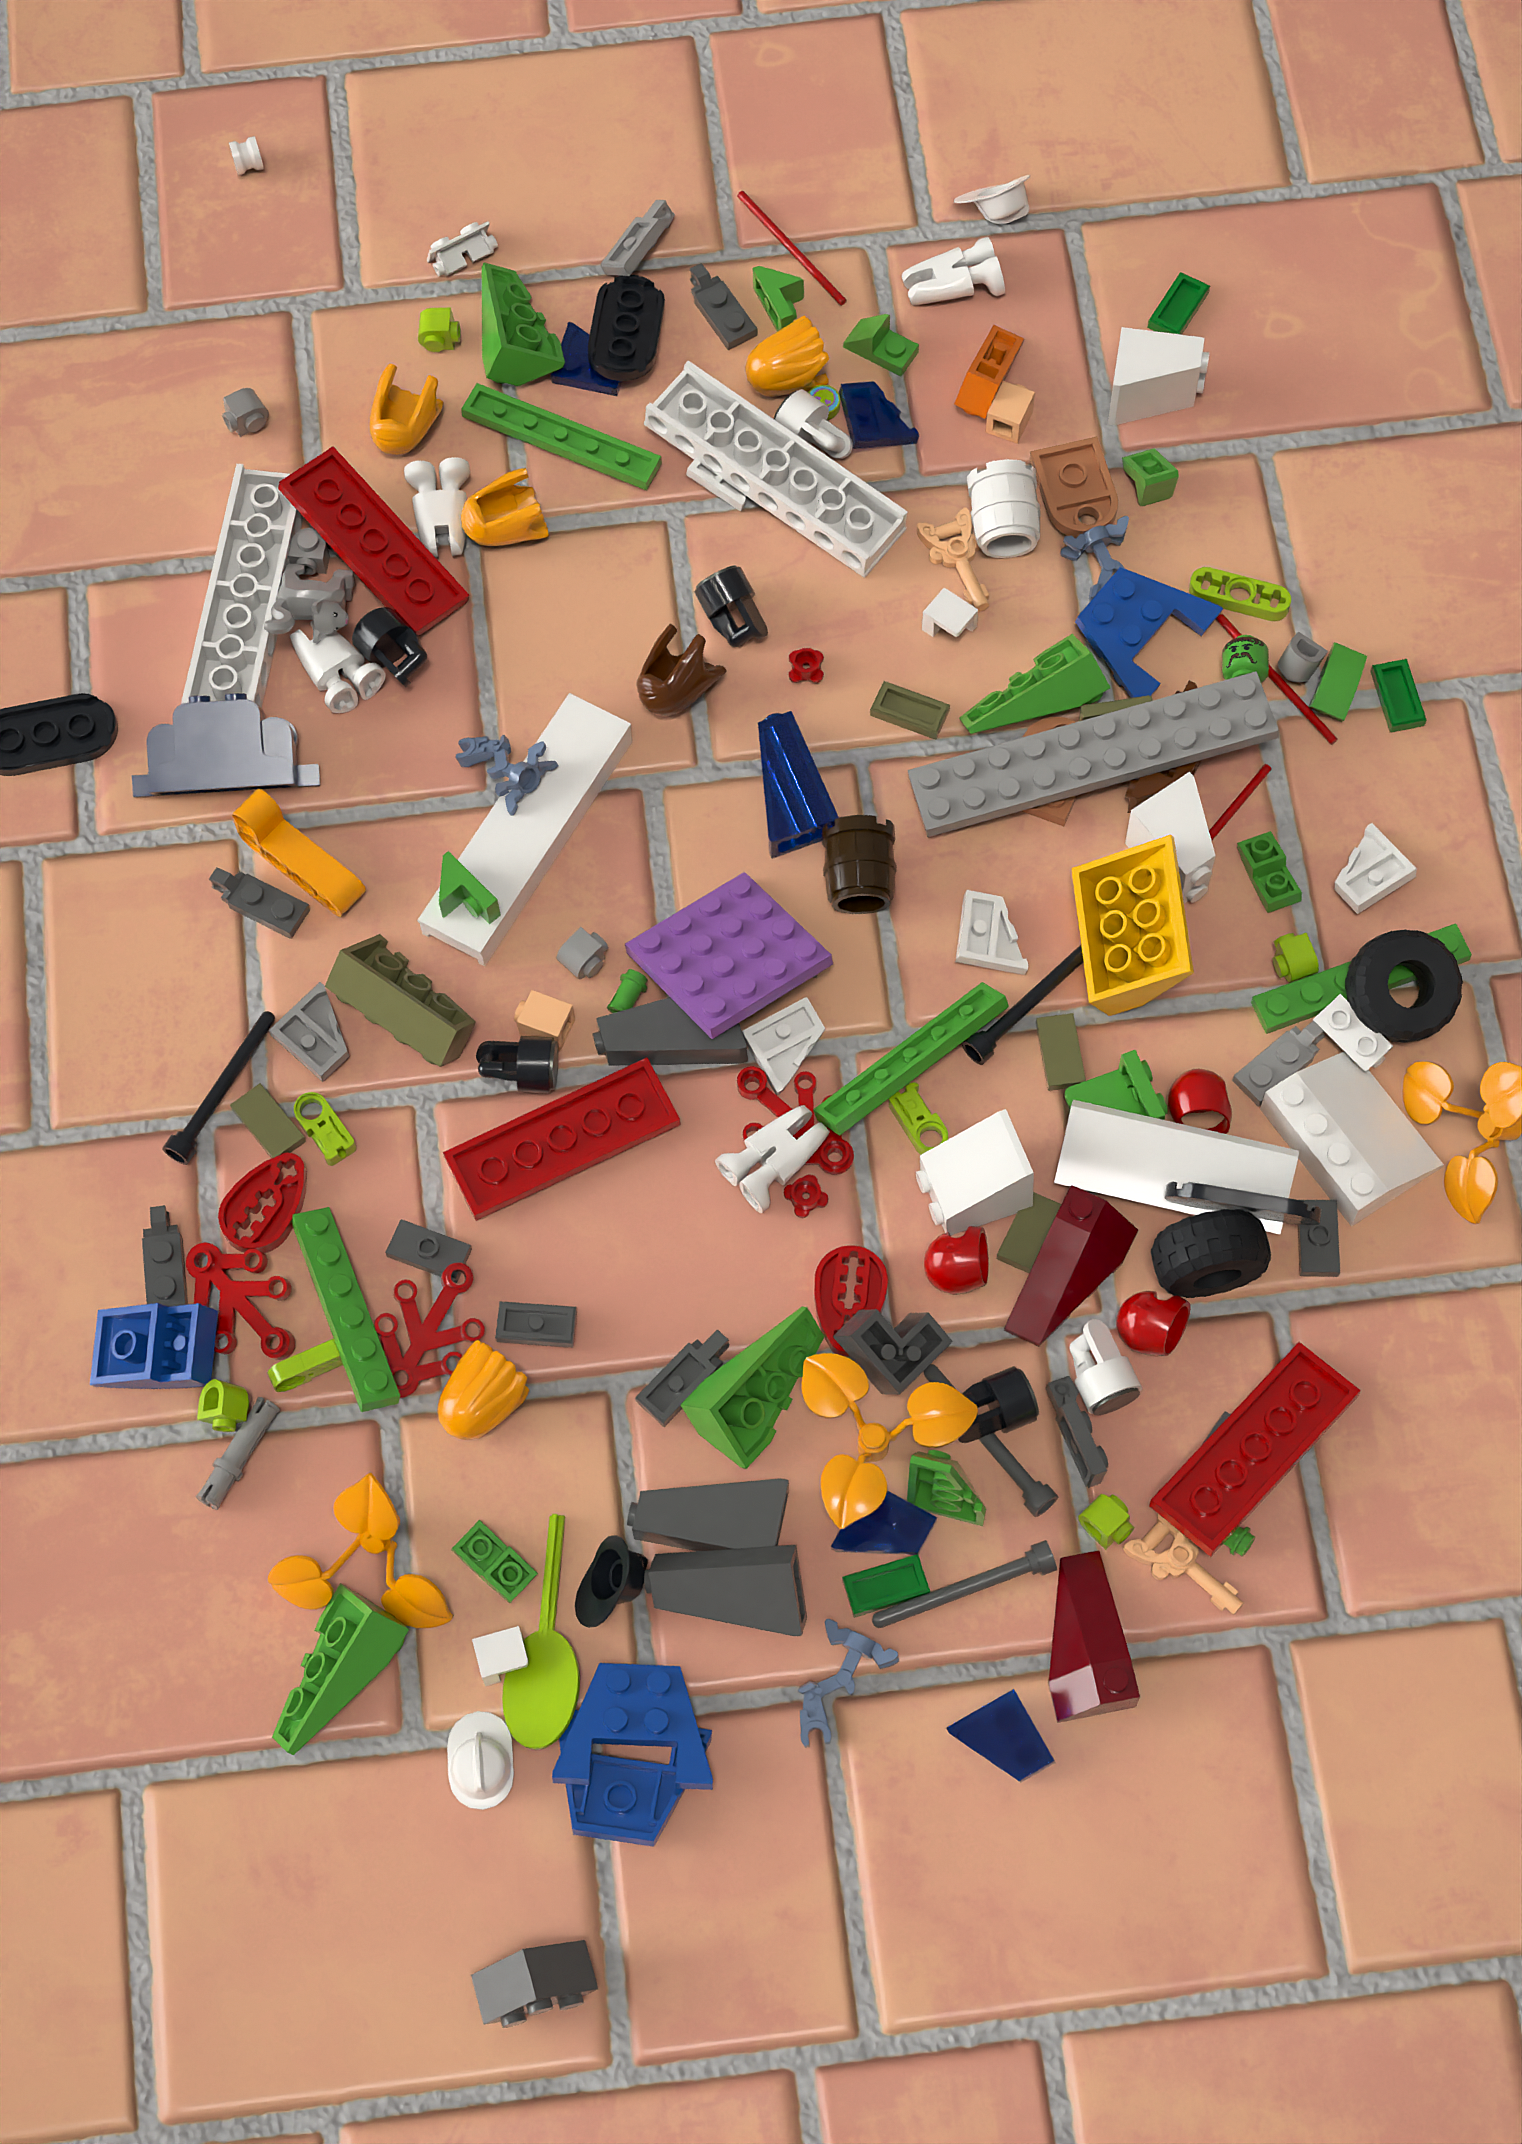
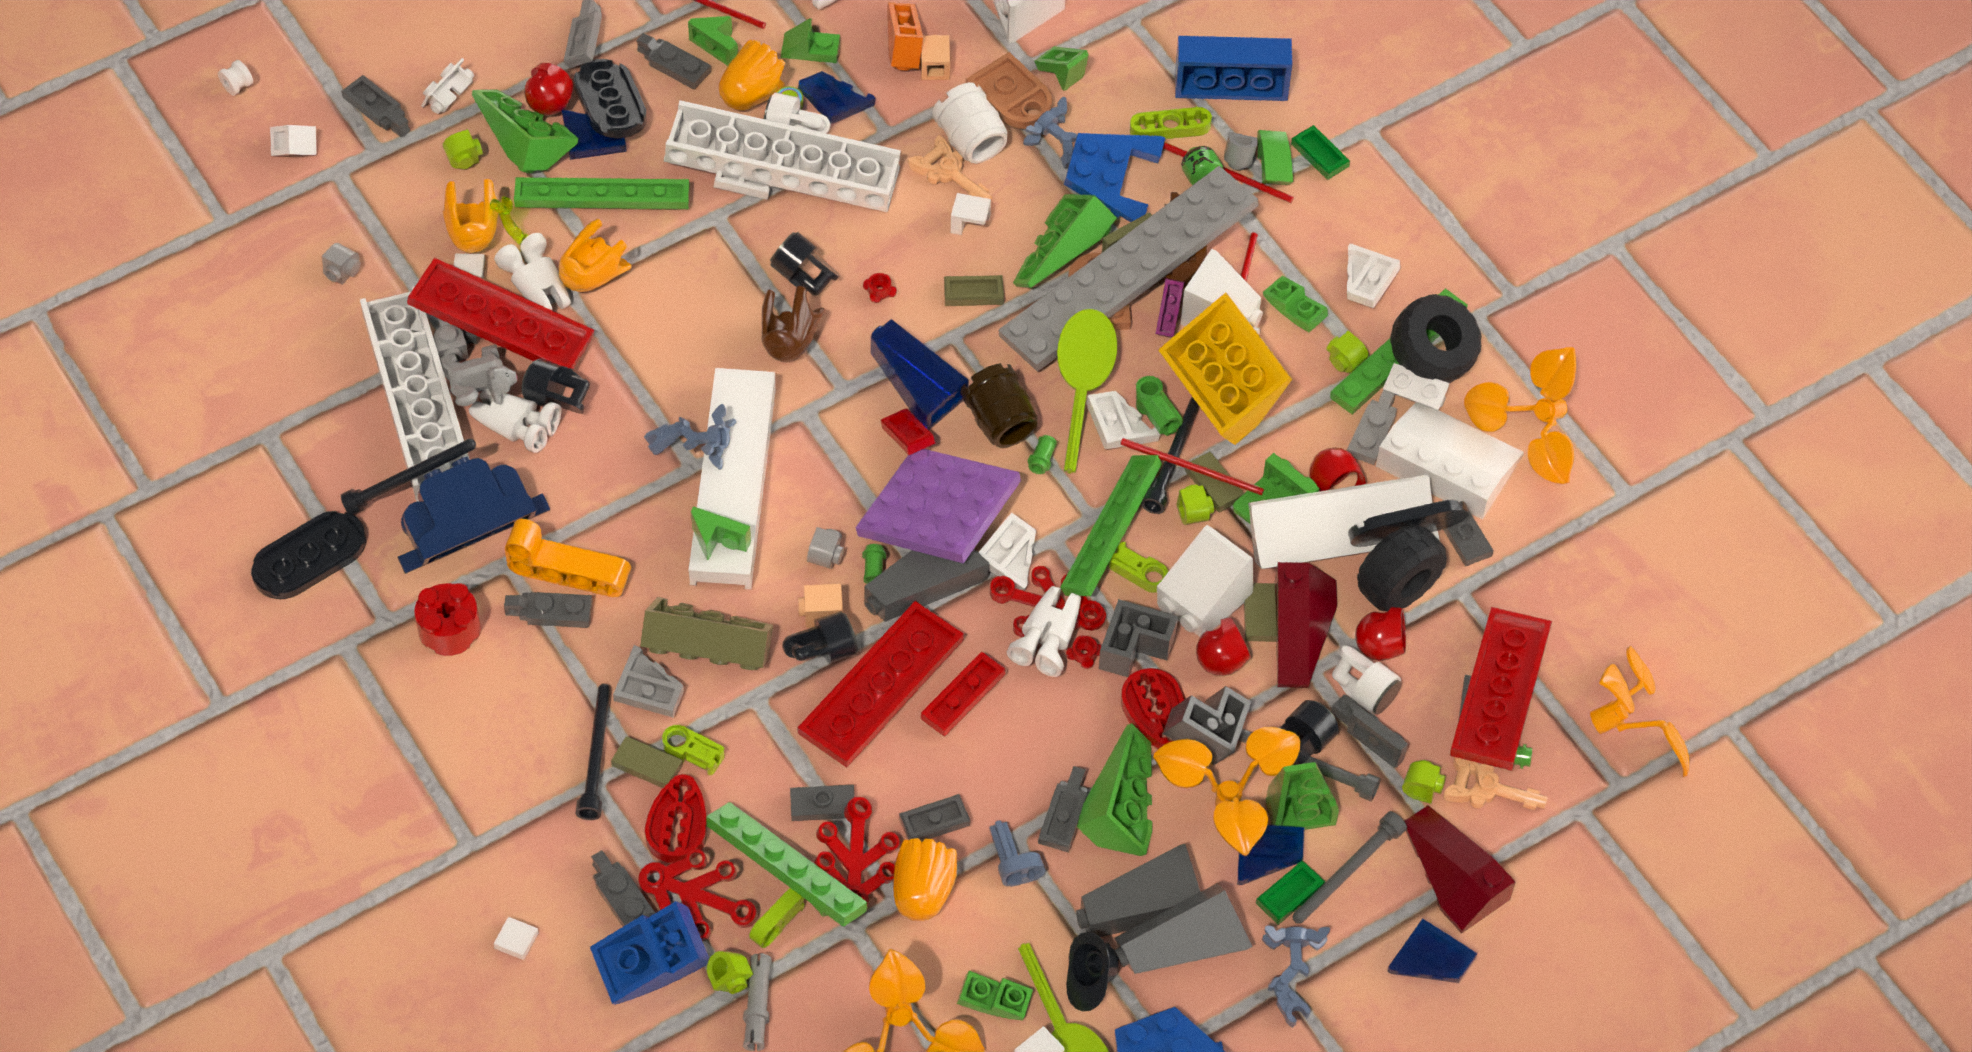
camera: 30 degrees left, 10 degrees down
(30, 1265) = (516, 938): none -> white tile
(120, 693) = (356, 500): none -> black piece
(142, 869) = (447, 618): none -> red brick
(268, 251) = (293, 140): none -> white panel
(376, 242) = (376, 105): none -> dark grey hinge
(378, 469) = (471, 263): none -> white tile
(438, 432) = (504, 209): none -> clear neon green piece
(561, 293) = (548, 89): none -> red helmet
(591, 1420) = (1014, 868): none -> sand blue piece
(644, 1189) = (962, 694): none -> red plate
(744, 851) = (907, 431): none -> red plate
(867, 1196) = (1133, 631): none -> dark grey brick
(881, 939) = (1039, 461): none -> bright green pin
(980, 850) = (1085, 361): none -> lime piece
(1020, 1072) = (1194, 505): none -> lime plate
(1039, 935) = (1156, 405): none -> bright green piece
(1041, 1025) = (1192, 466): none -> red axle
(1114, 821) = (1169, 307): none -> magenta piece
(1342, 554) = (1233, 68): none -> blue brick
(1373, 1536) = (1615, 712): none -> light orange plant

